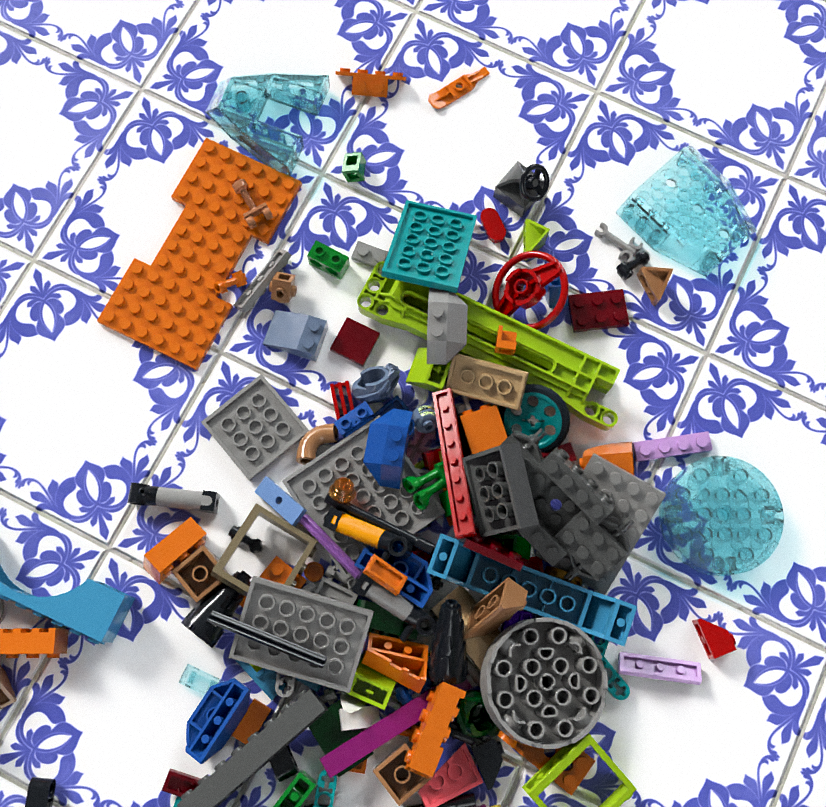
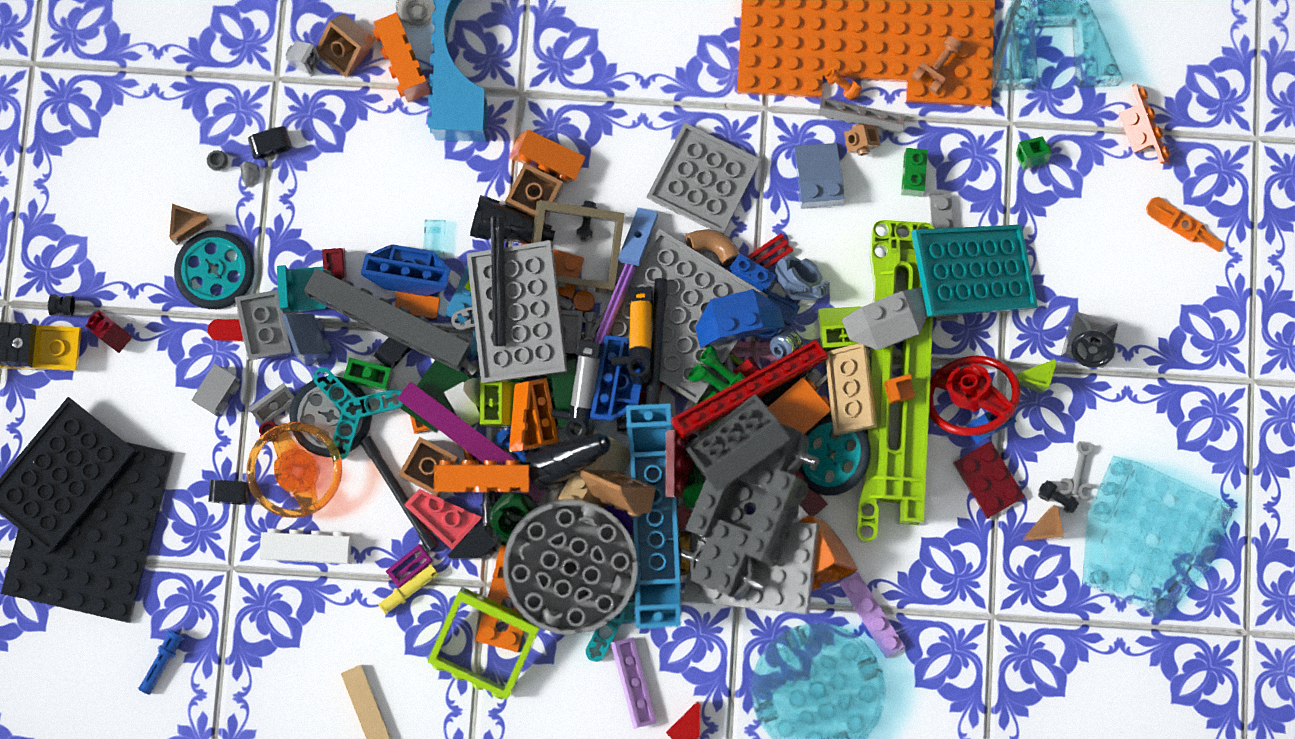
camera: 70 degrees right, 5 degrees up
(146, 495) = (597, 132): piece -> none
(342, 490) = (673, 291): clear orange cone -> none
(355, 341) = (838, 239): dark red tile -> none
(385, 574) = (606, 366): orange tile -> none
(493, 225) = (1035, 328): red tile -> none

